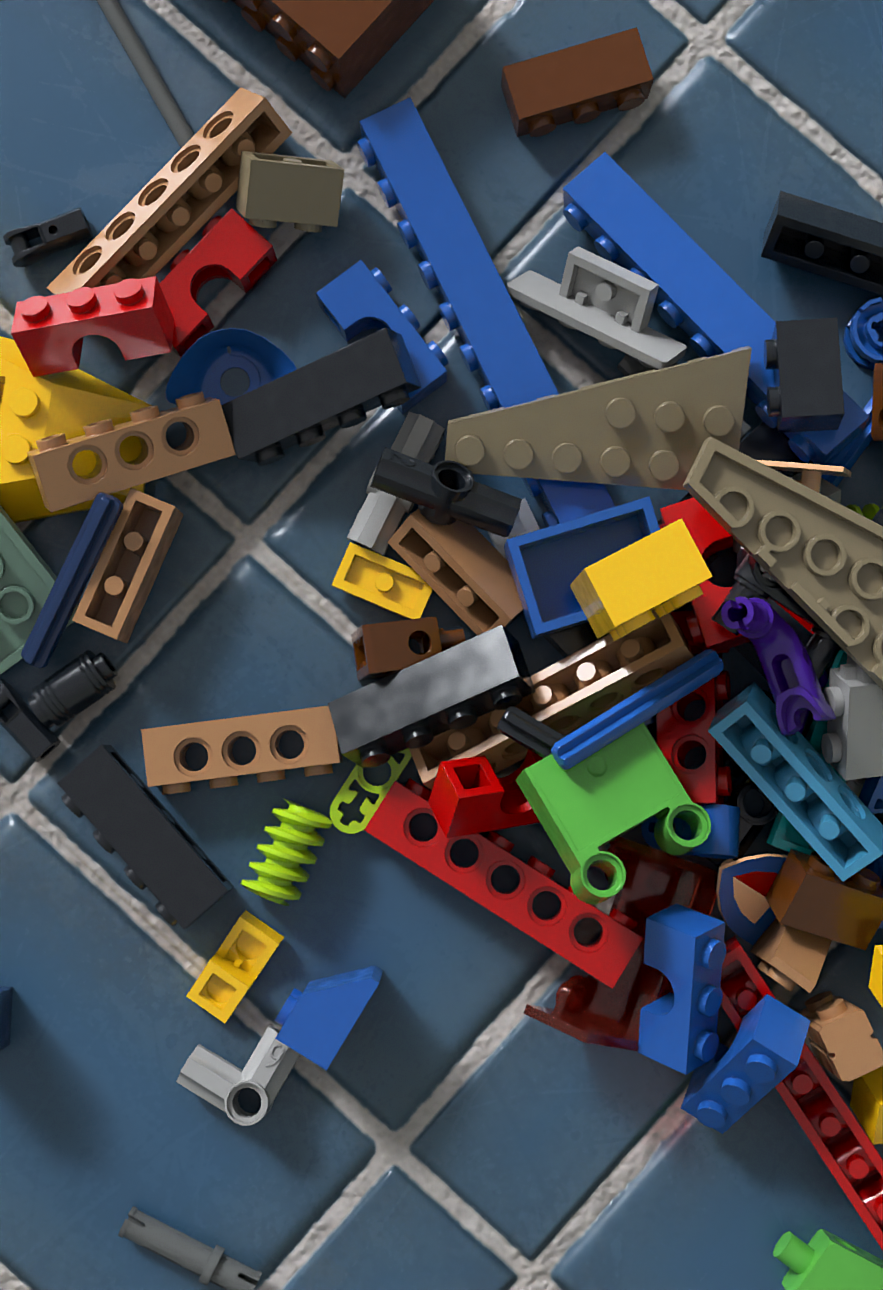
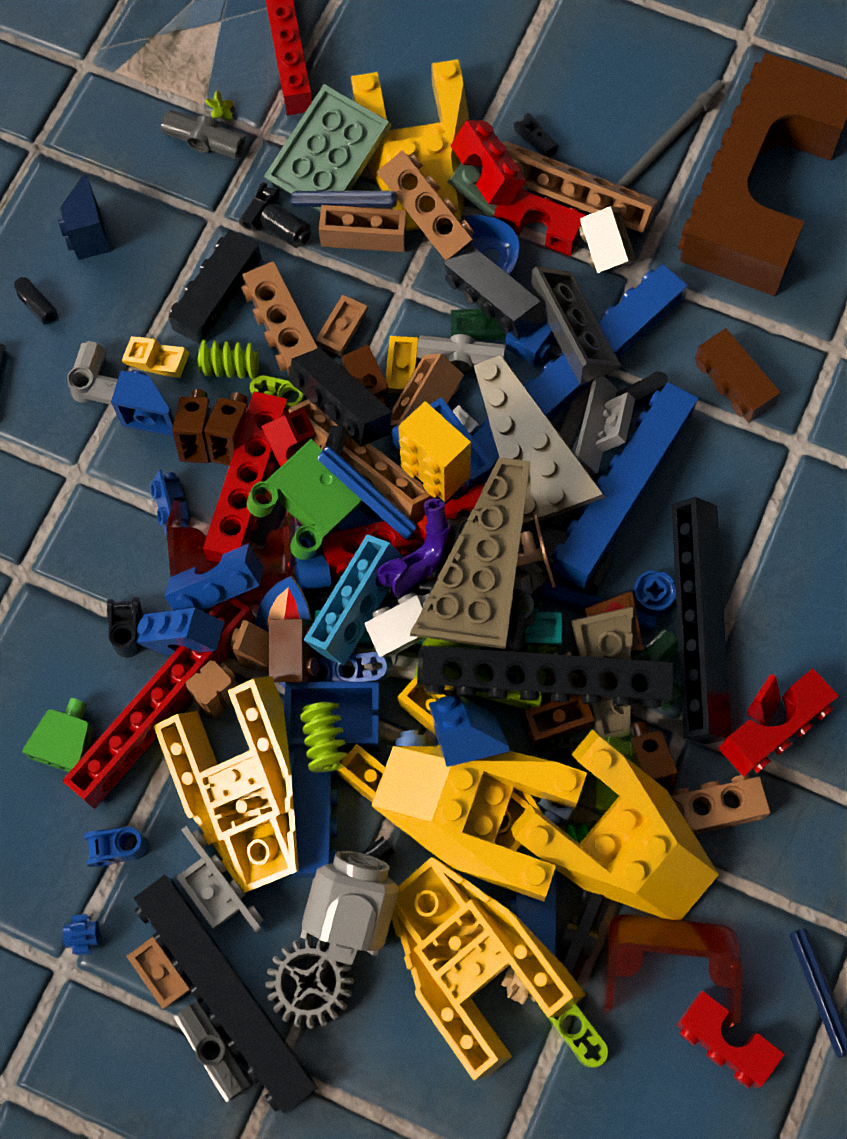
camera: 75 degrees right, 15 degrees down
(66, 1137) = (35, 301): none -> black bar
(106, 372) = (464, 181): none -> sand green plate
(283, 654) = (341, 325): none -> medium nougat plate
(353, 451) = (475, 324): none -> clear green plate
(404, 945) = (191, 420): none -> reddish brown torso
(424, 898) = (225, 427): none -> reddish brown torso
(426, 292) = (573, 324): none -> dark grey slope
(446, 492) = (460, 367): black piece -> none
(478, 1017) = (165, 491): none -> blue hinge
(550, 231) = (644, 389): none -> black bar
(677, 1140) = (123, 621): none -> black piece
(805, 375) = (597, 527): black brick -> none

